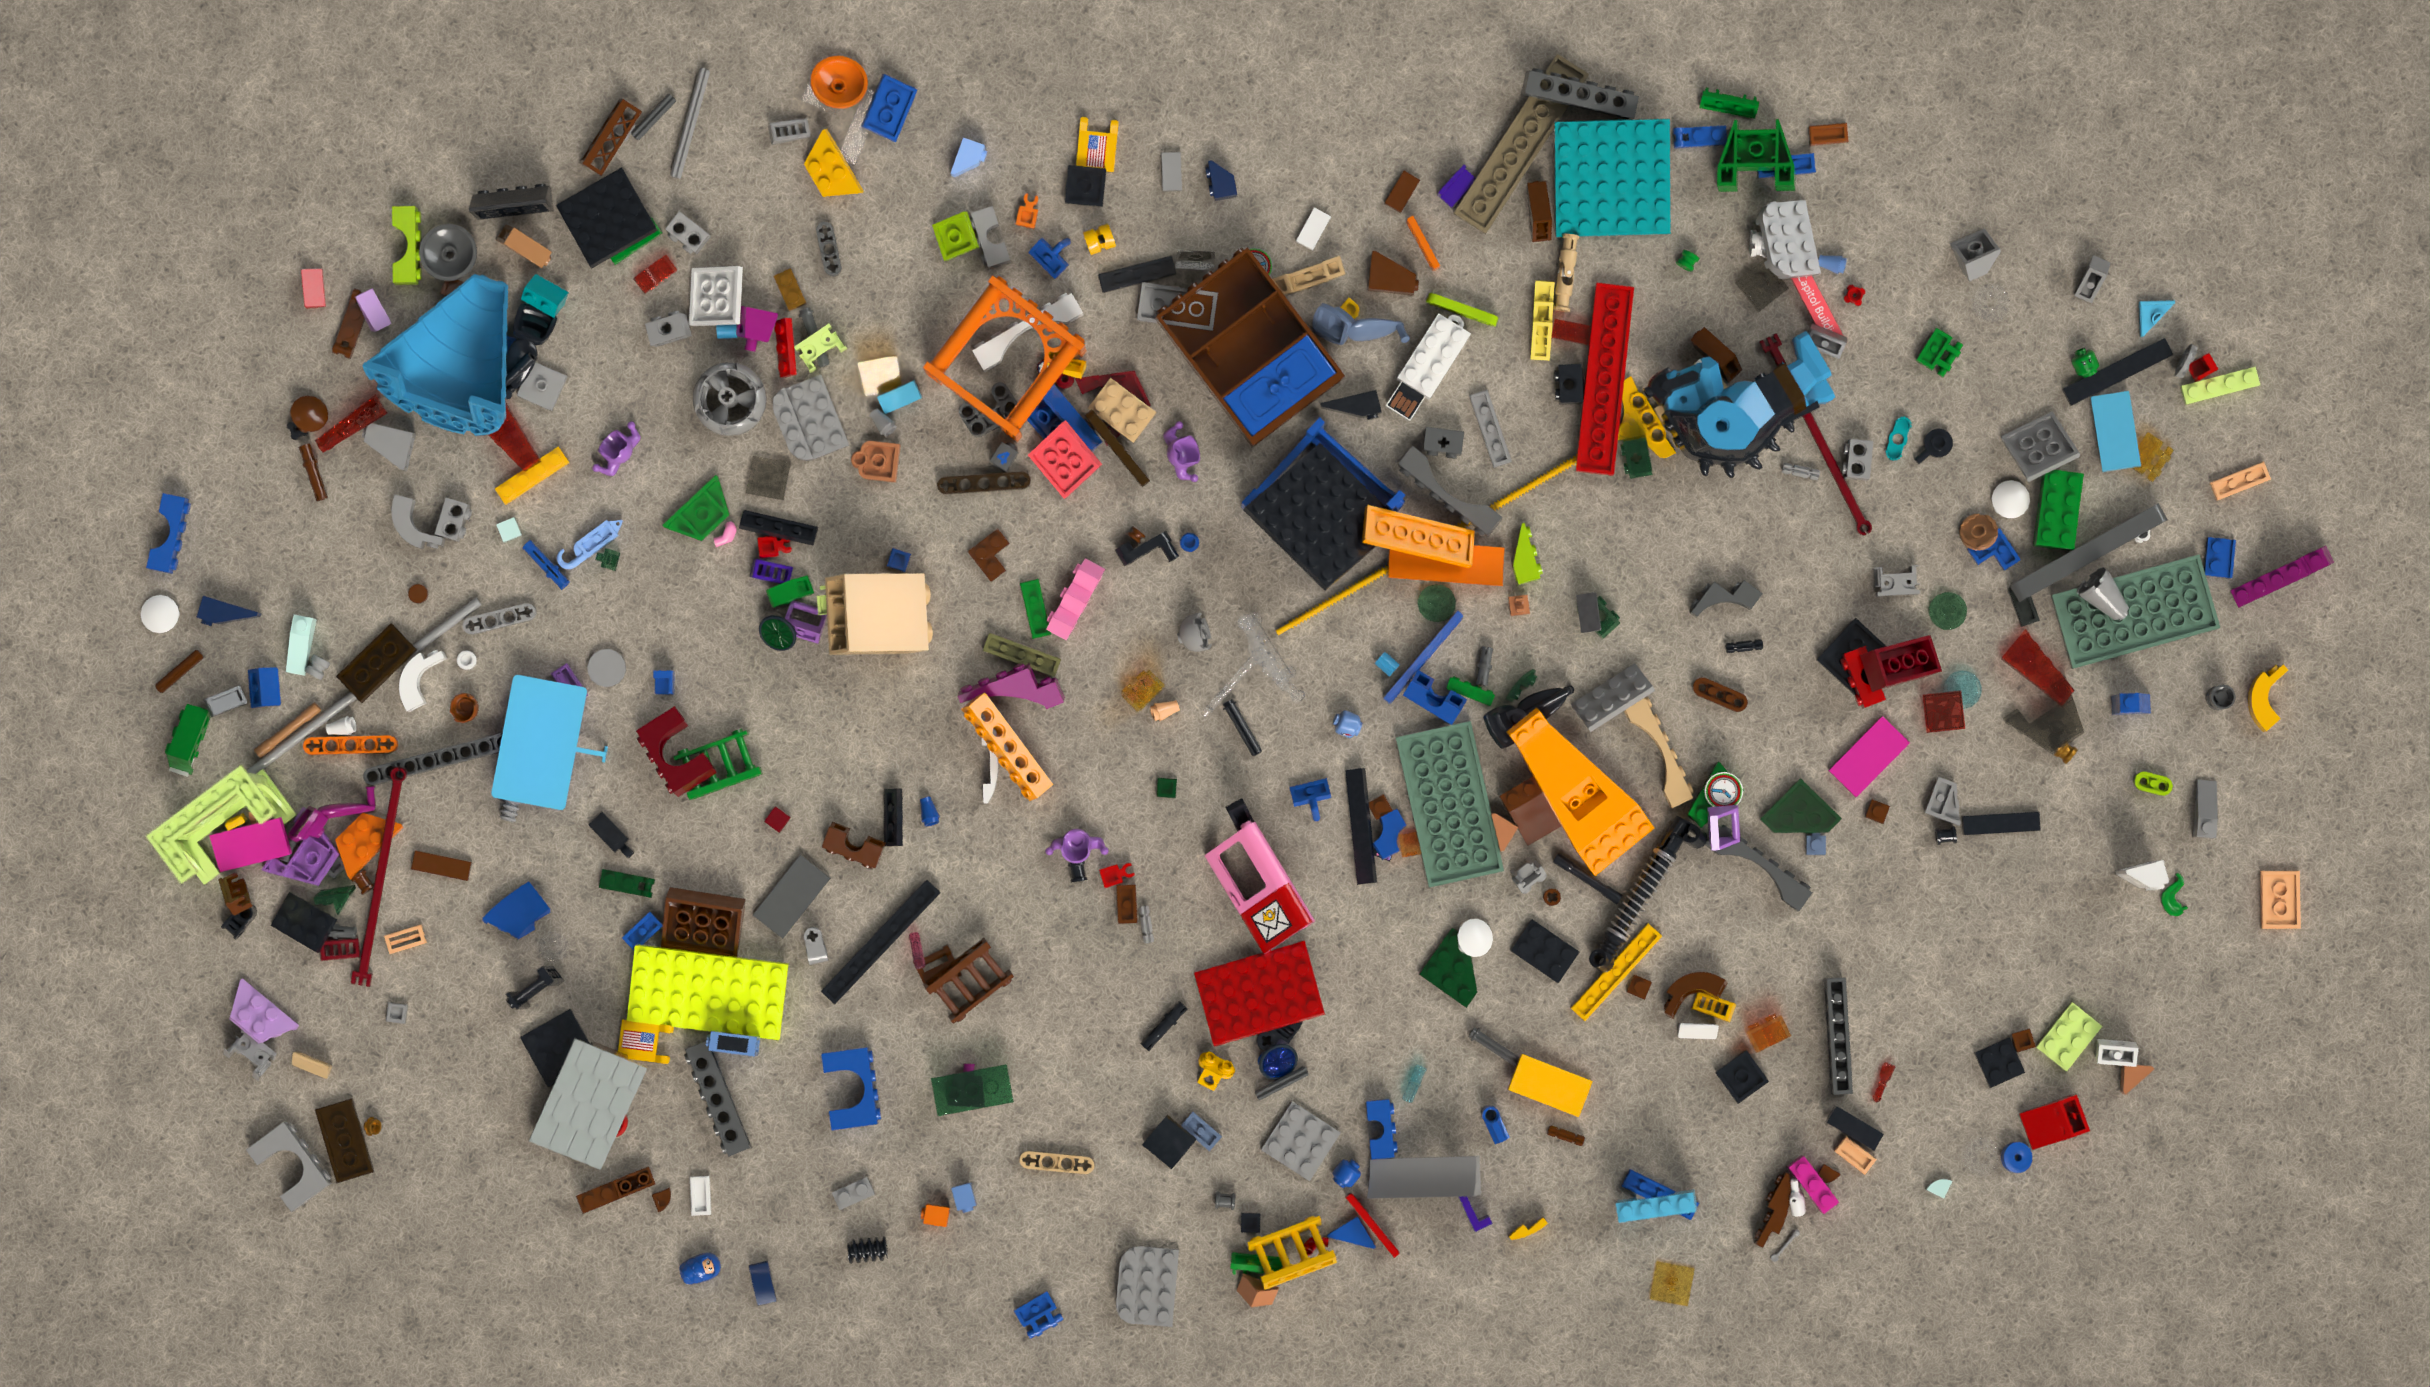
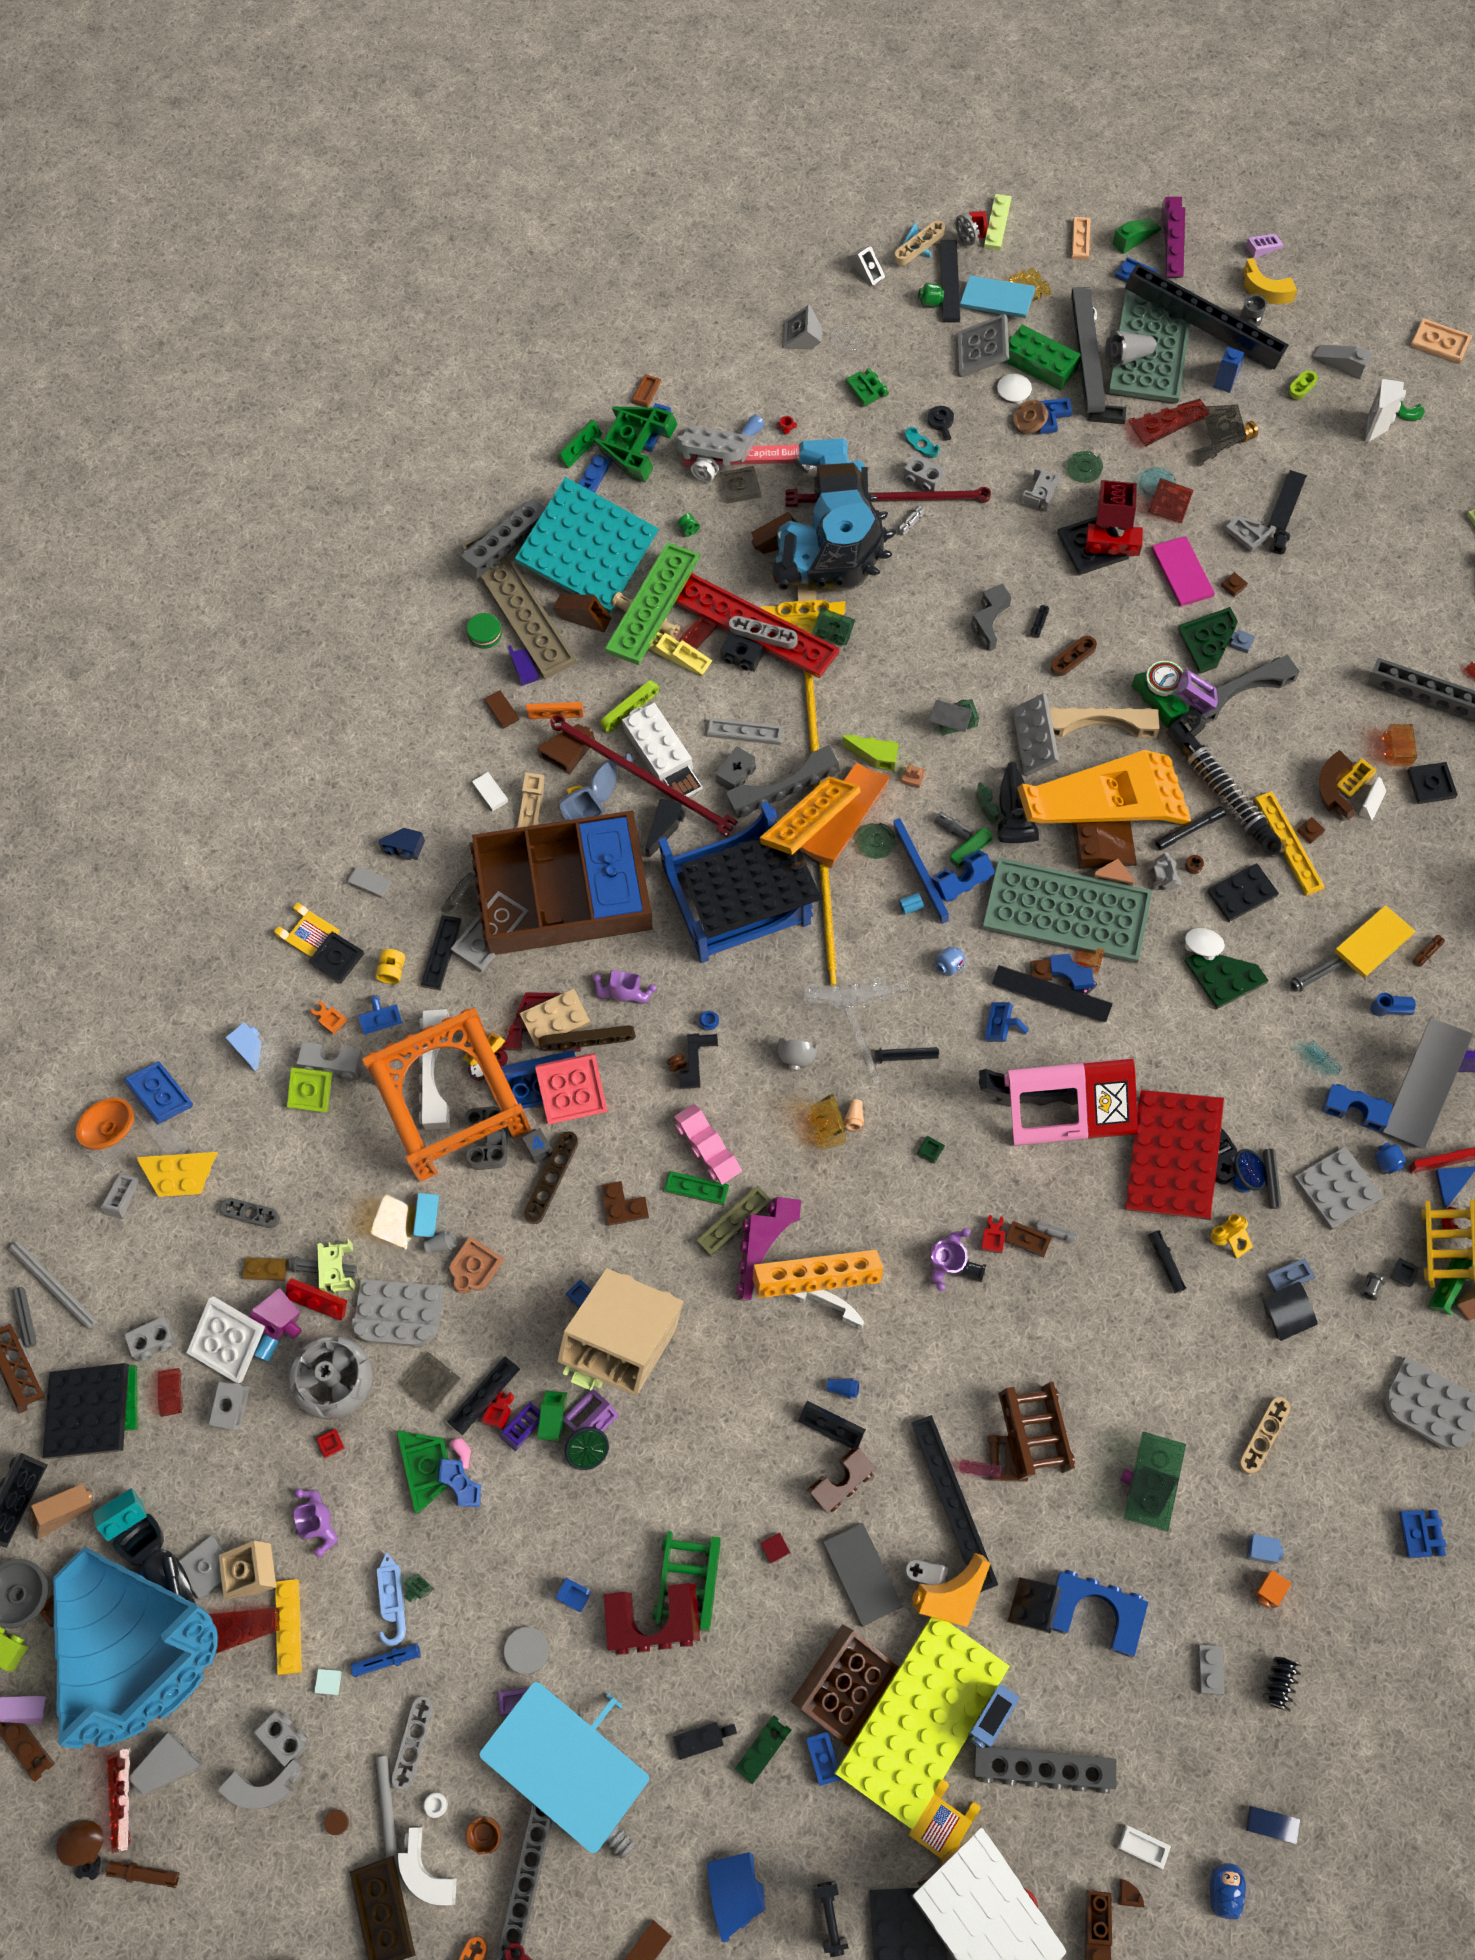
camera: 60 degrees left, 20 degrees down
(554, 420) = (247, 1570): none -> tan slope
(681, 426) = (330, 1443): none -> red tile
(698, 555) = (466, 1491): none -> tile
(804, 975) = (954, 1599): none -> light orange arch
(832, 1038) = (1034, 1605): none -> black plate
(1392, 363) = (645, 776): none -> dark red hinge
(1475, 129) = (484, 630): none -> green head
(1576, 276) = (652, 603): none -> bright green plate
(1598, 395) = (761, 635): none -> light grey beam
(2147, 318) = (917, 240): none -> tan beam
(2182, 654) = (1206, 316): none -> black brick
(2272, 535) = (1134, 233): none -> green slope
(2313, 674) = (1257, 251): none -> lavender slope

